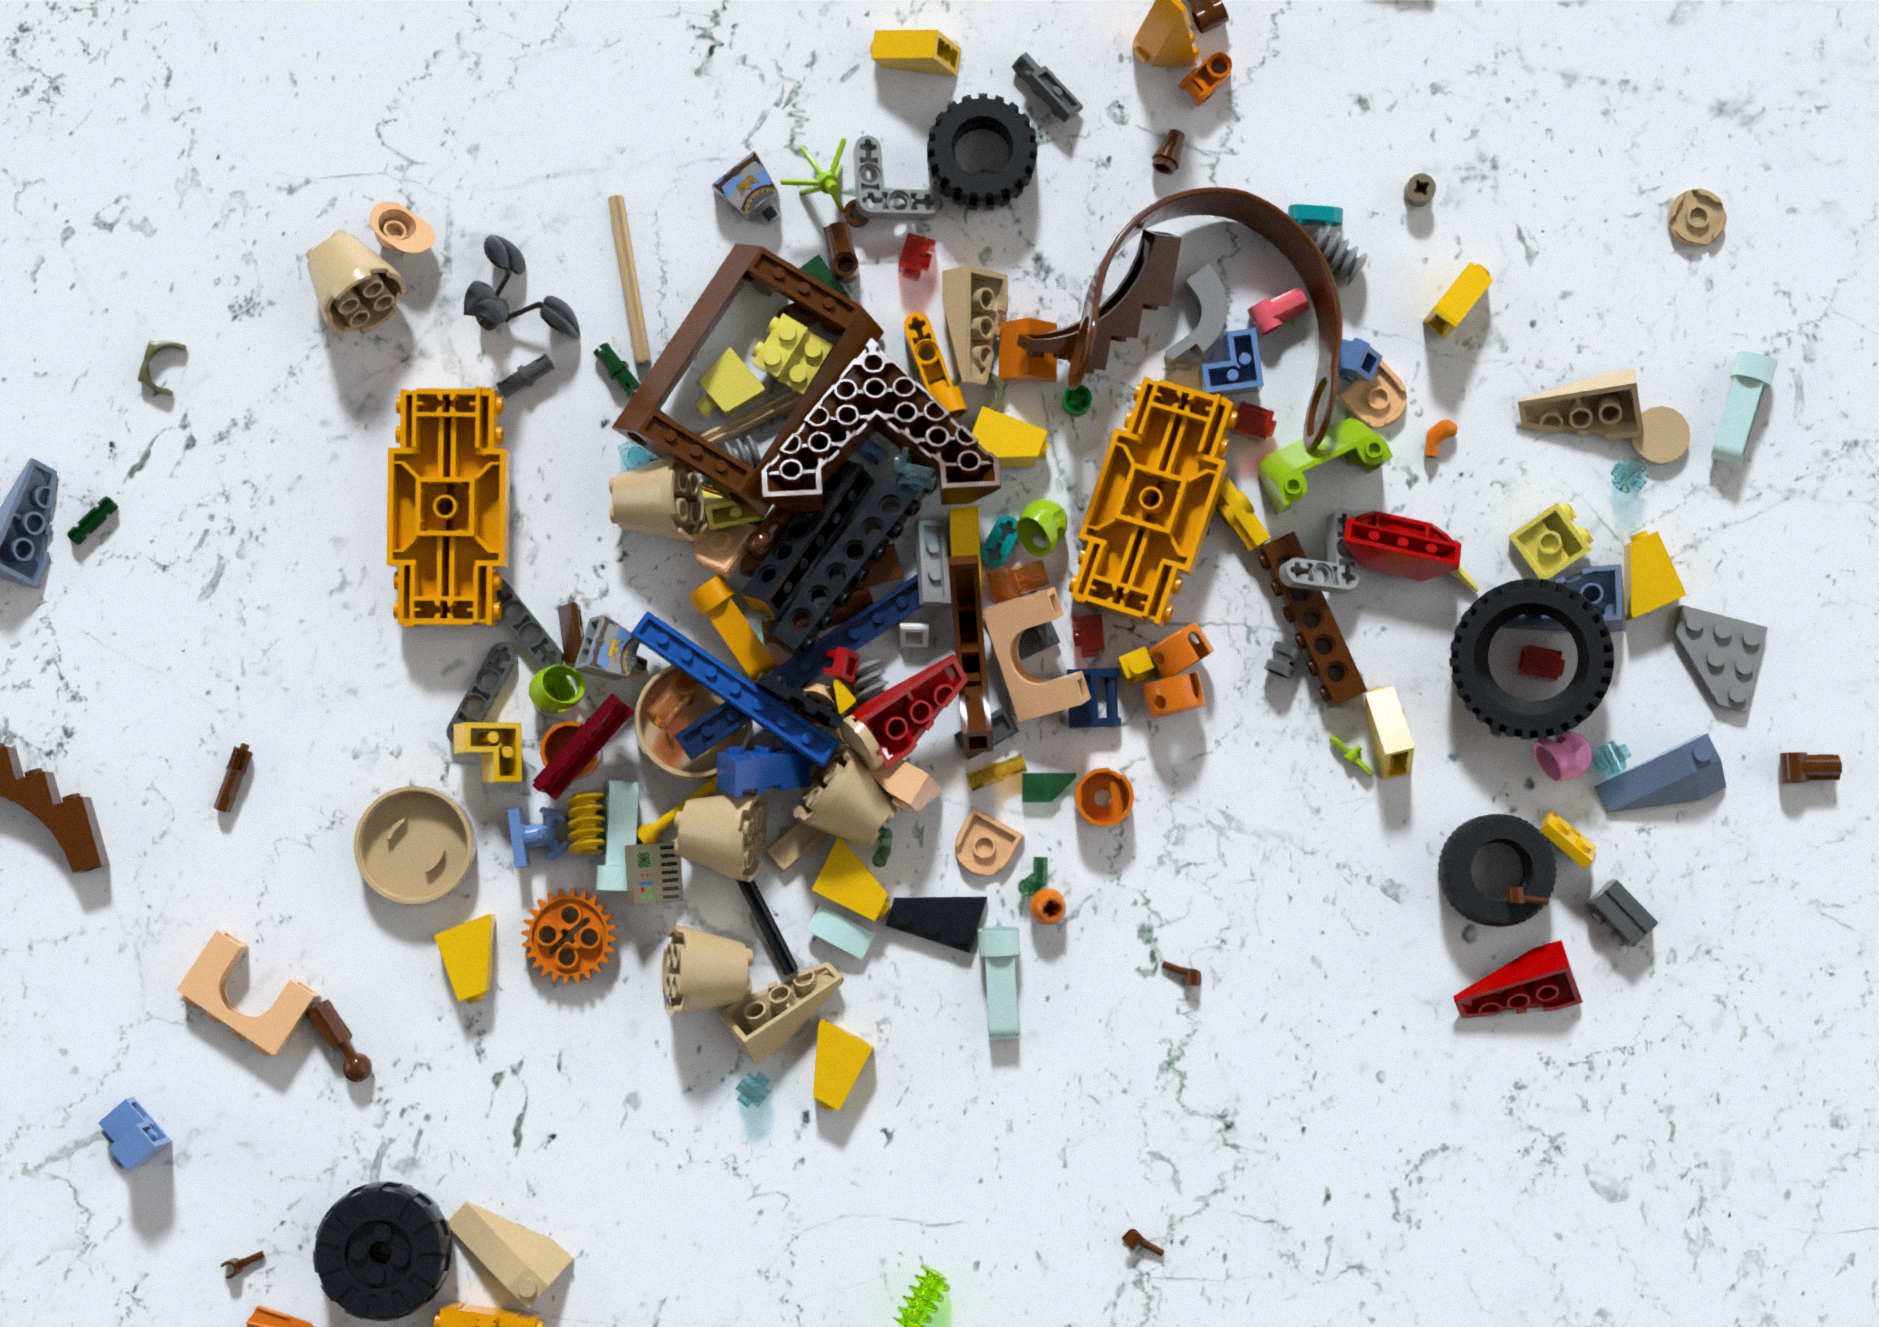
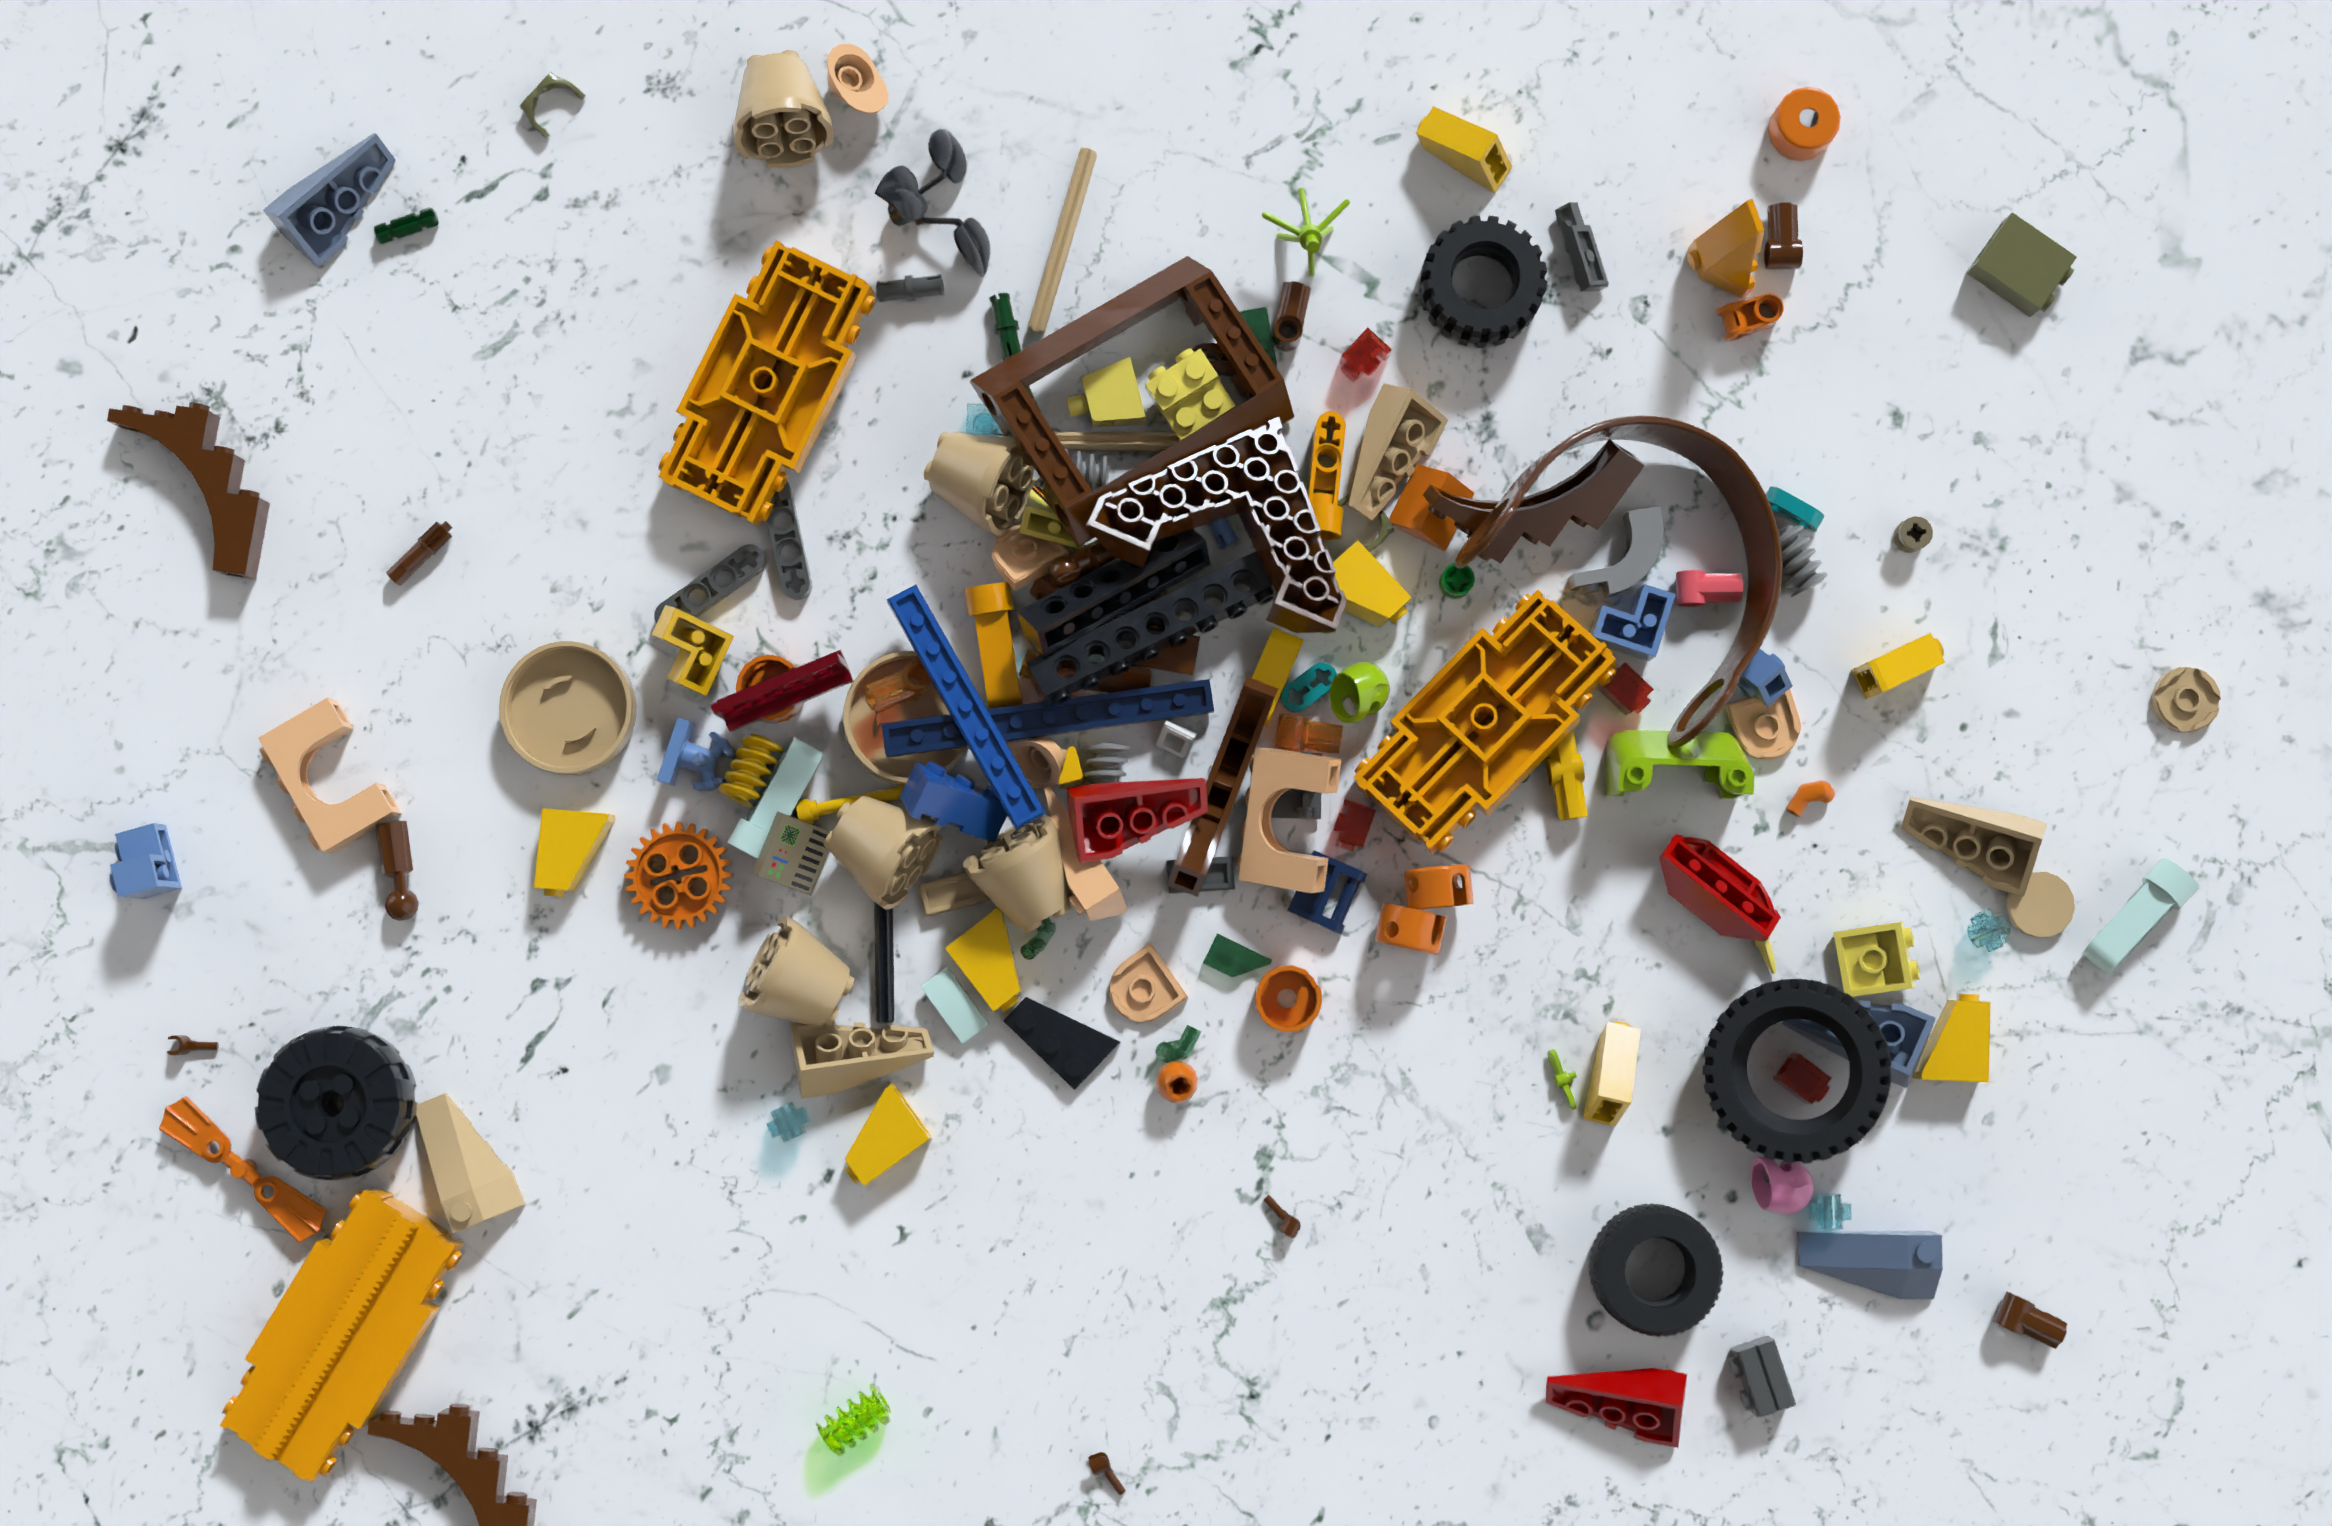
camera: 25 degrees right, 0 degrees up
(553, 691) = (783, 621): lime helmet -> none
(571, 631) = (831, 571): reddish brown slope -> none
(609, 651) = (858, 606): torso -> none
(749, 190) = (1227, 208): torso -> none
(799, 700) = (1024, 748): black wing -> none
(844, 664) = (1088, 736): red tile -> none
(848, 213) = (1316, 279): reddish brown bush -> none
(861, 742) = (1067, 822): tan tile -> none
(876, 192) = (1355, 272): light grey beam -> none
(913, 475) = (1253, 577): clear light blue bracket -> none
(932, 563) = (1229, 675): light grey plate -> none
(996, 772) = (1191, 919): clear yellow pin -> none
(999, 947) = (1106, 1100): light aqua beam -> none
(1135, 666) = (1385, 880): yellow brick -> none
(1168, 155) = (1671, 376): reddish brown cone -> none
(1283, 658) = (1540, 946): dark grey wheel -> none
(1326, 629) = (1600, 937): reddish brown brick -> none
(1332, 569) = (1635, 878): light grey beam -> none
(1515, 895) = (1663, 1305): reddish brown hand -> none
(1568, 839) = (1744, 1273): yellow plate -> none
(1722, 653) = (1995, 1160): light grey plate -> none

